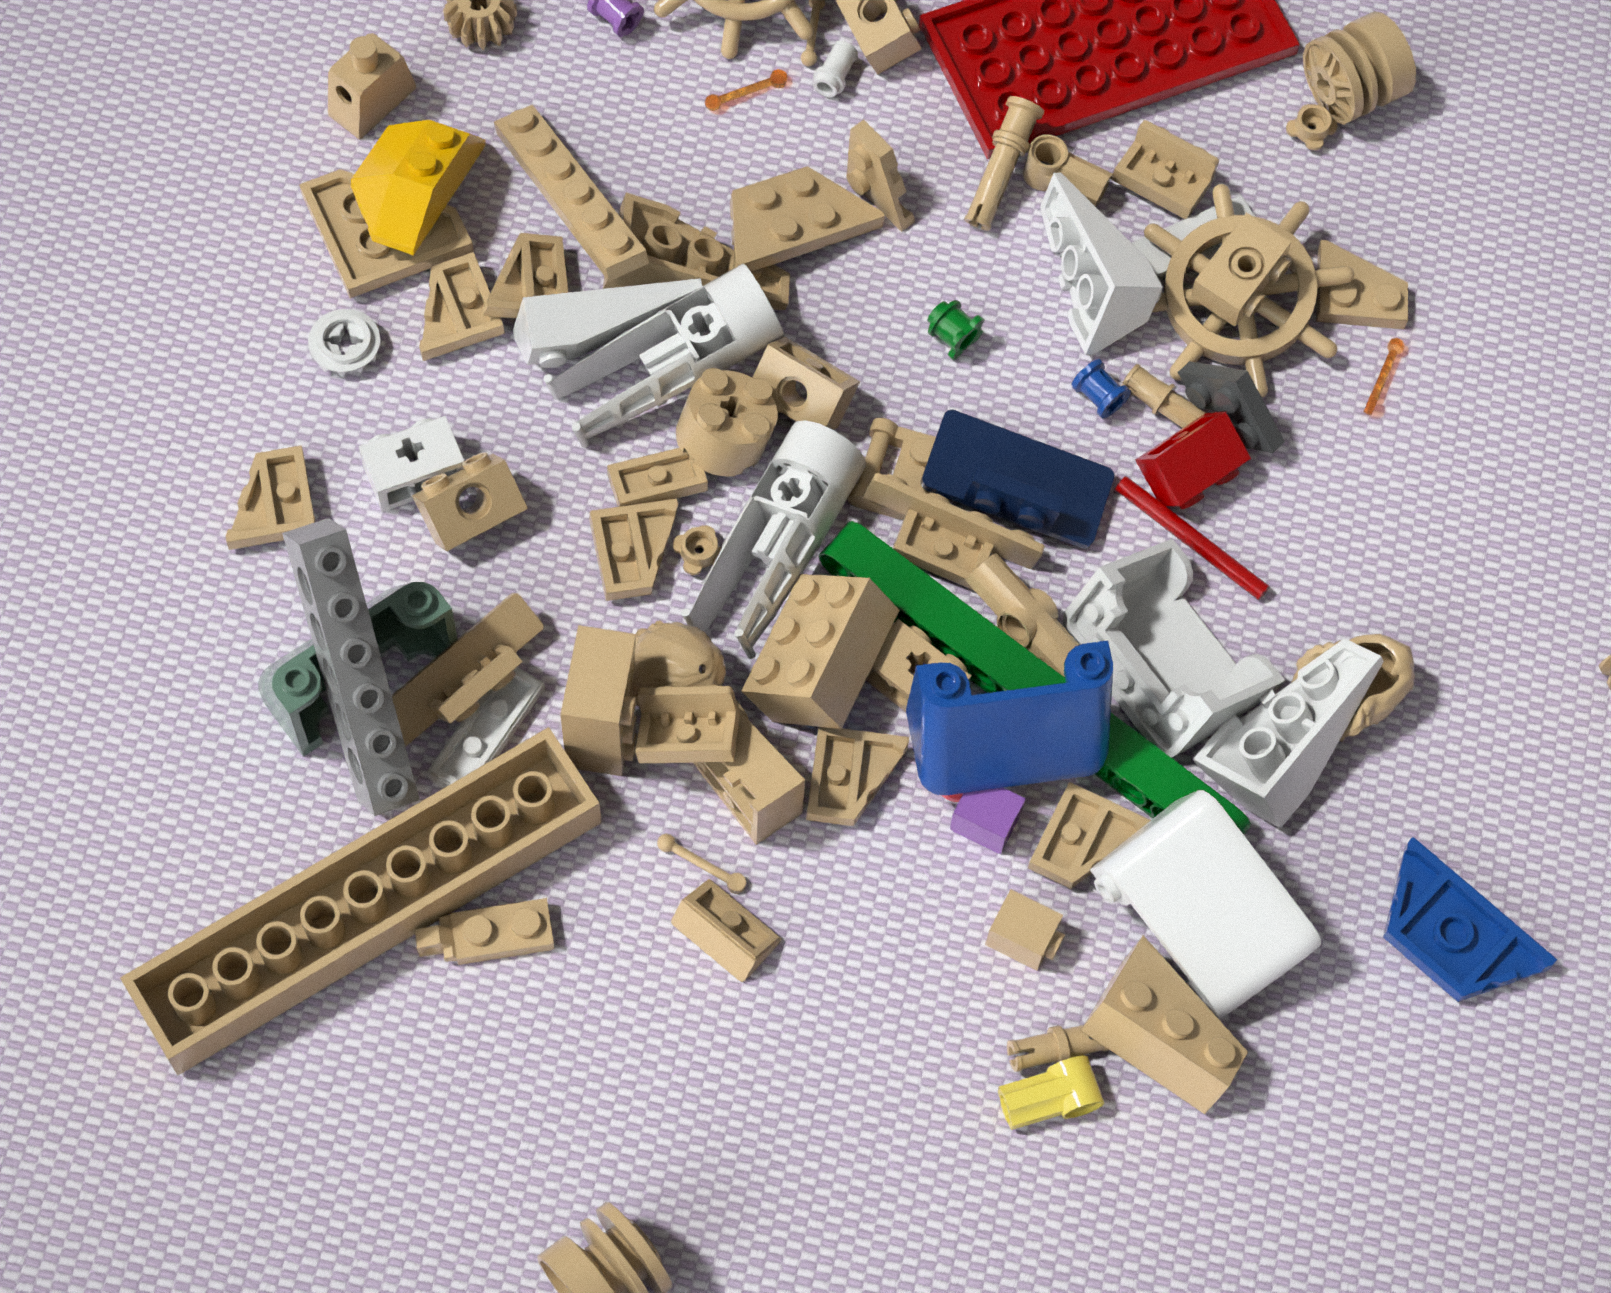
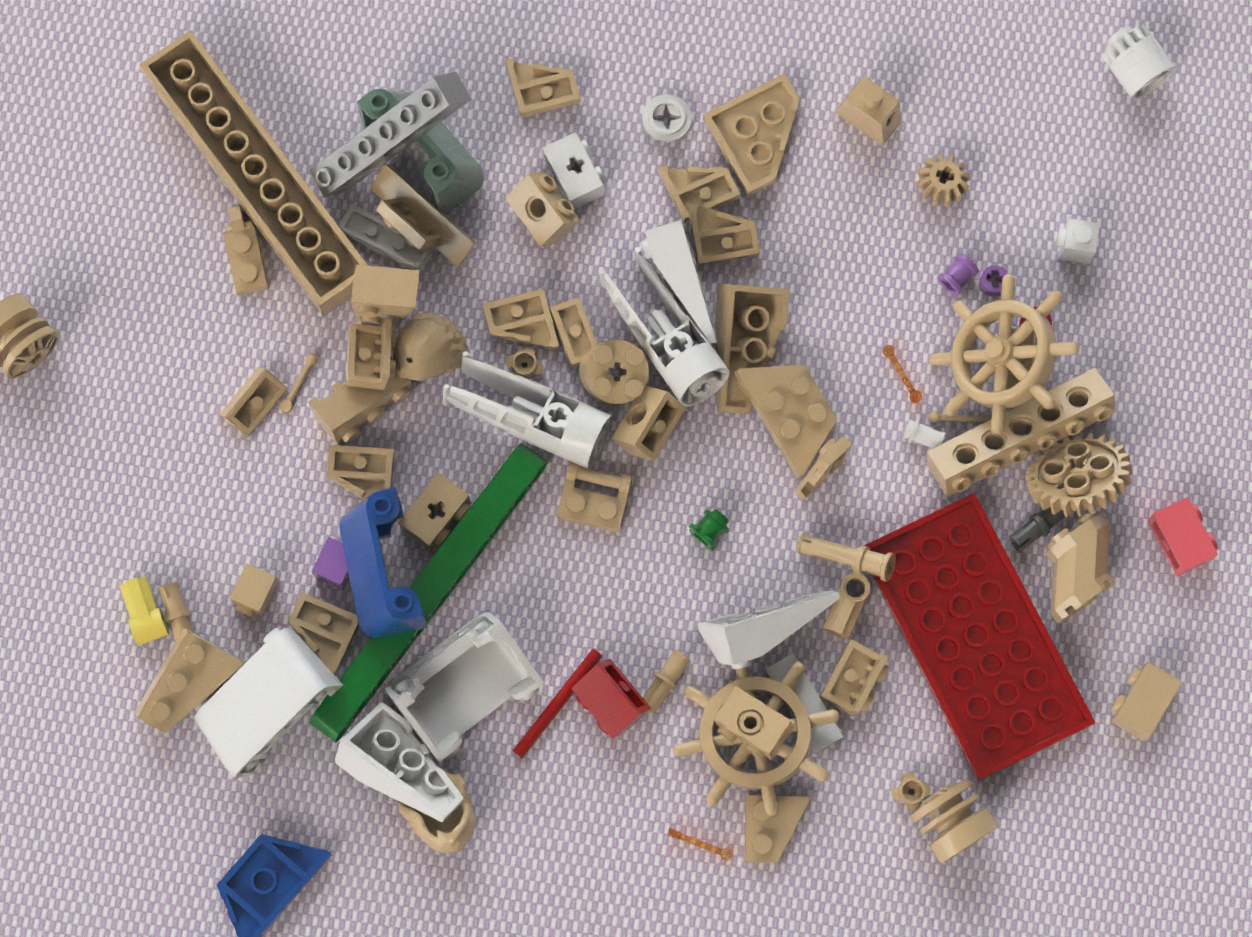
camera: 90 degrees right, 10 degrees up
(412, 179) = (792, 146): yellow wedge -> none
(571, 193) = (785, 251): tan plate -> none
(820, 650) = (440, 443): tan brick -> none
(945, 536) = (535, 528): tan bracket -> none
(1017, 479) = (588, 576): dark blue bracket -> none
(1023, 613) = (478, 584): tan piece -> none
(1101, 388) = (668, 634): blue bush -> none
(1236, 394) = (654, 723): dark grey plate -> none

